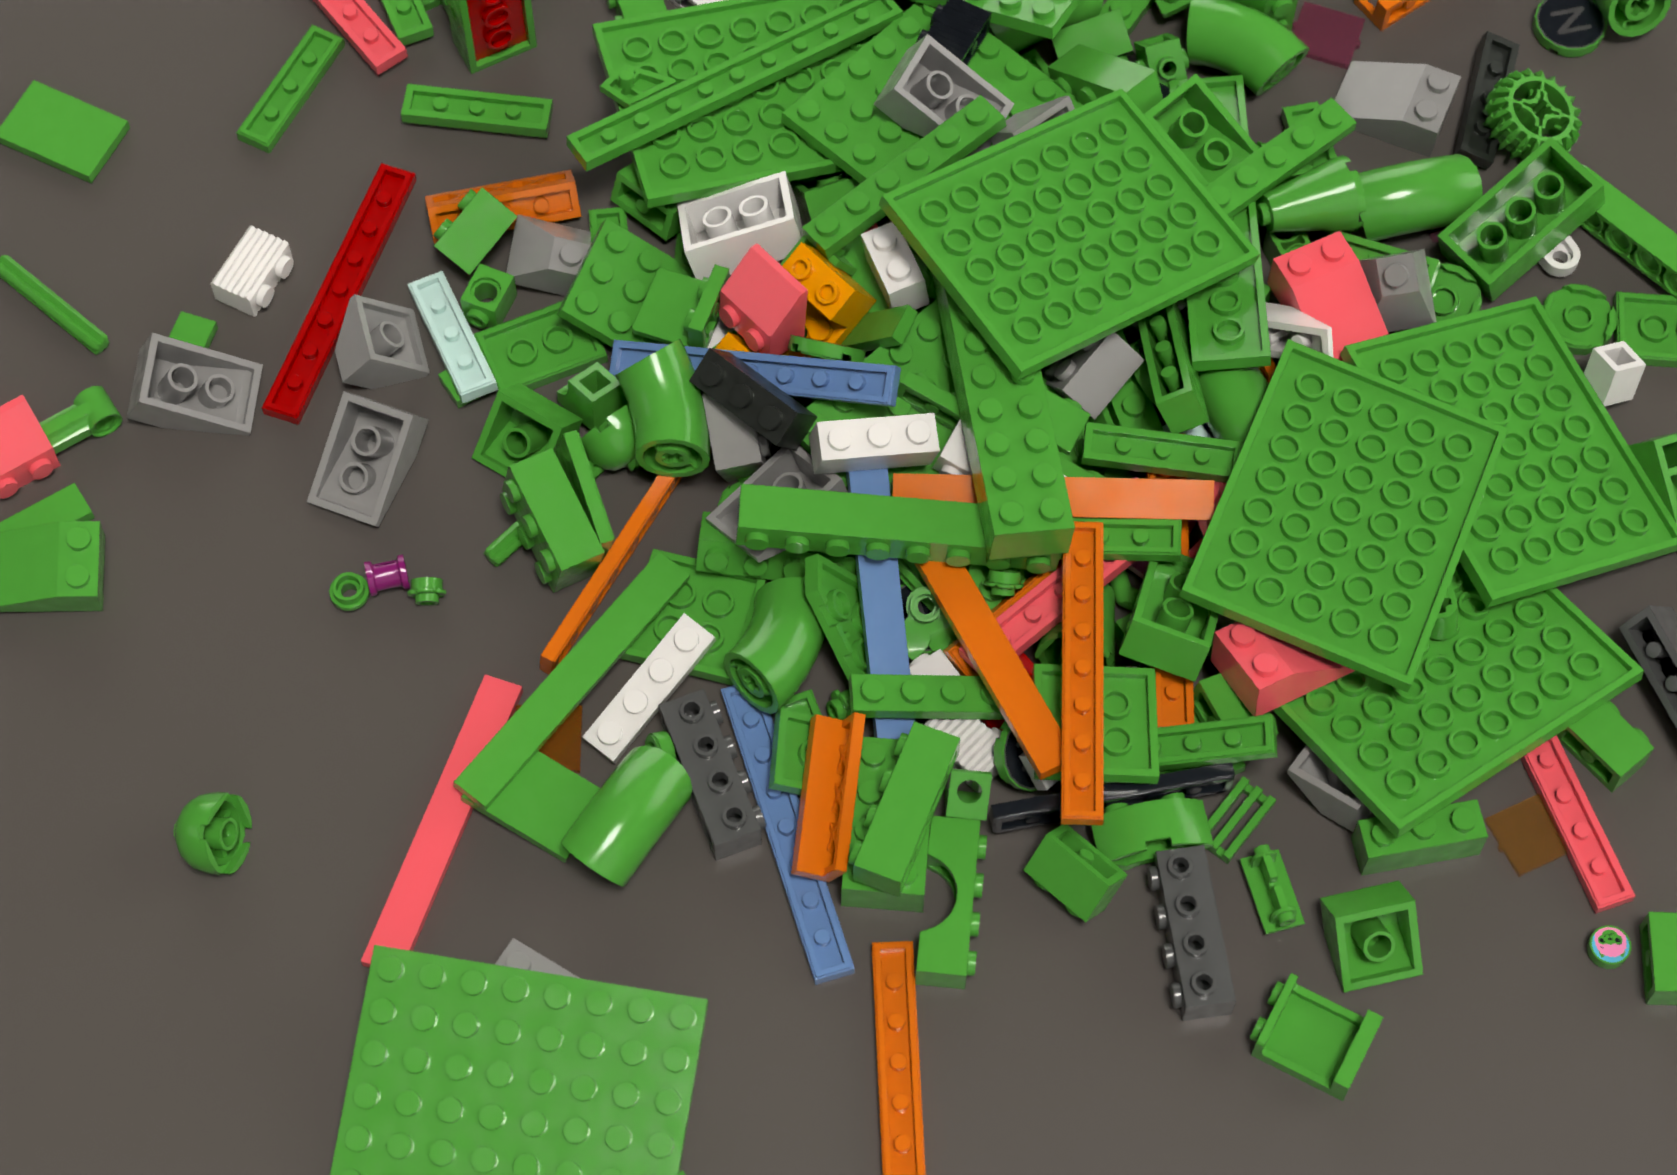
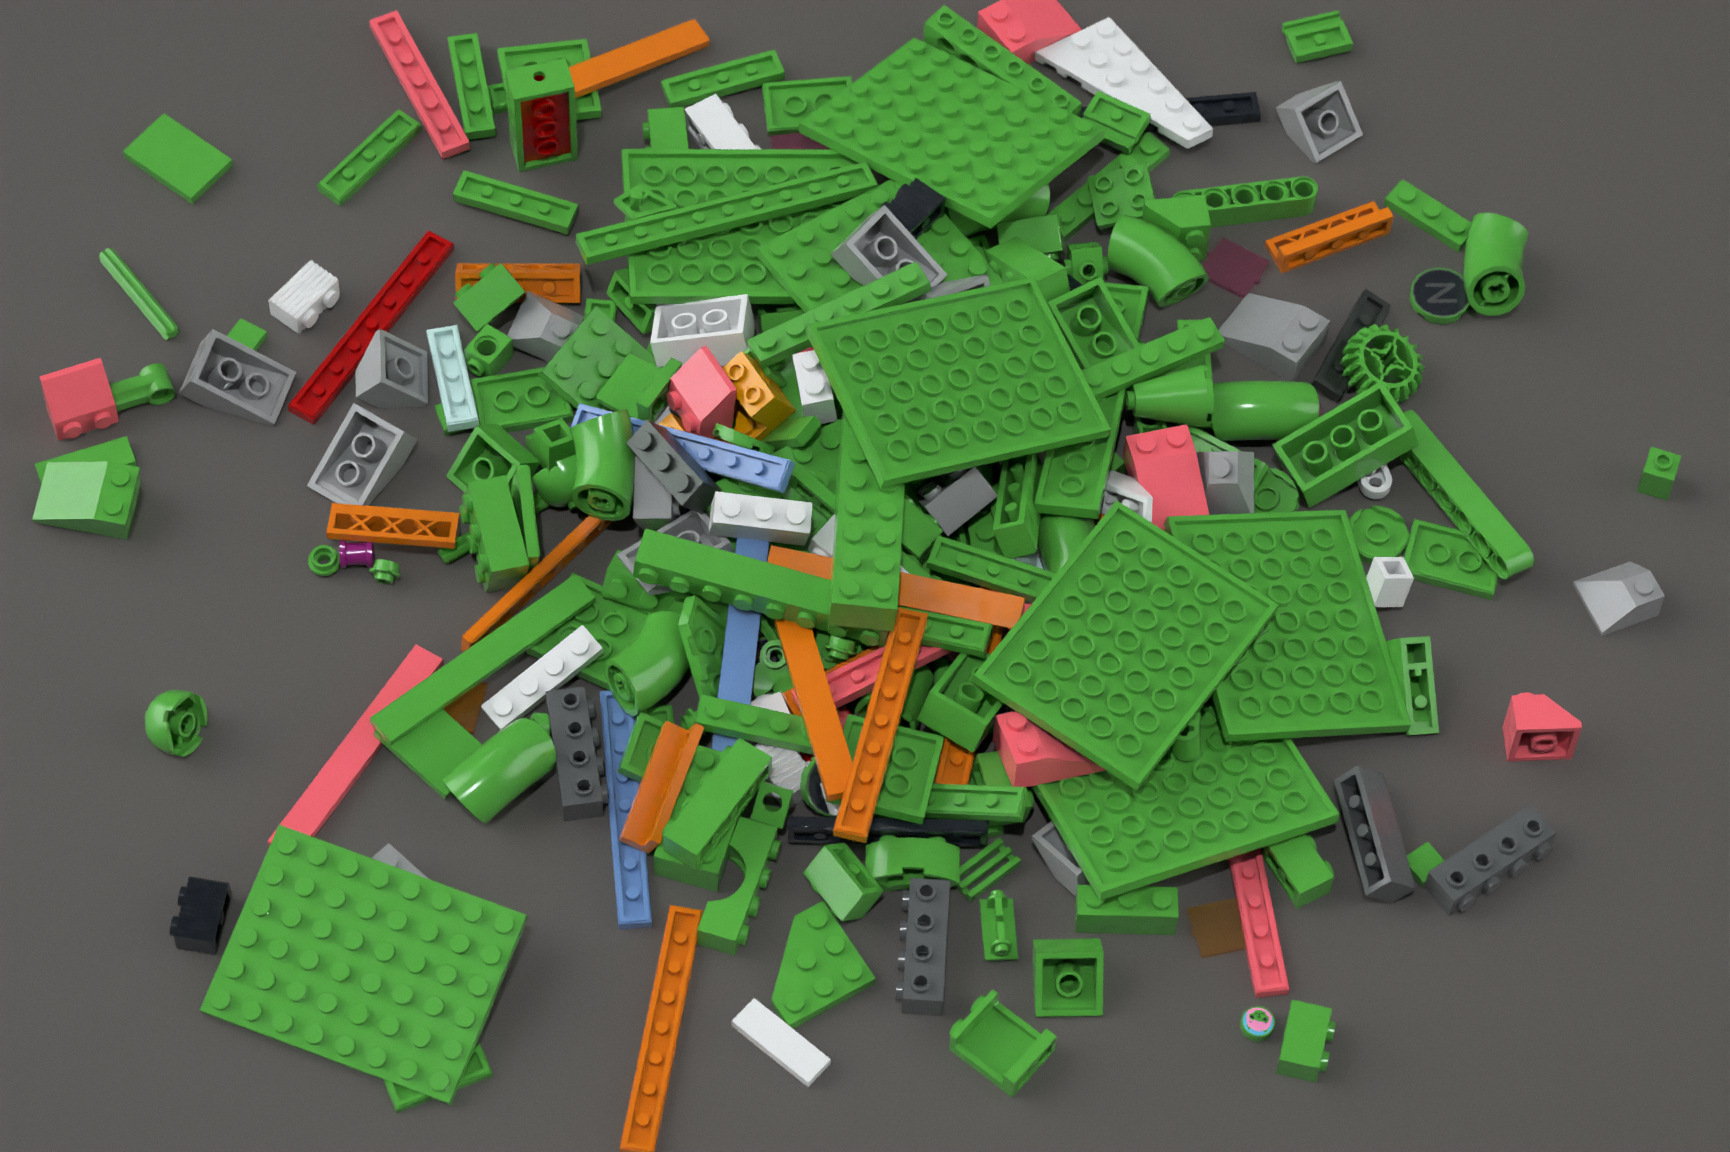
camera: 10 degrees right, 5 degrees down
(299, 1075) = (200, 915): none -> black brick
(424, 533) = (393, 525): none -> orange fence
(1049, 1090) = (781, 1042): none -> white tile
(1068, 985) = (817, 968): none -> bright green plate

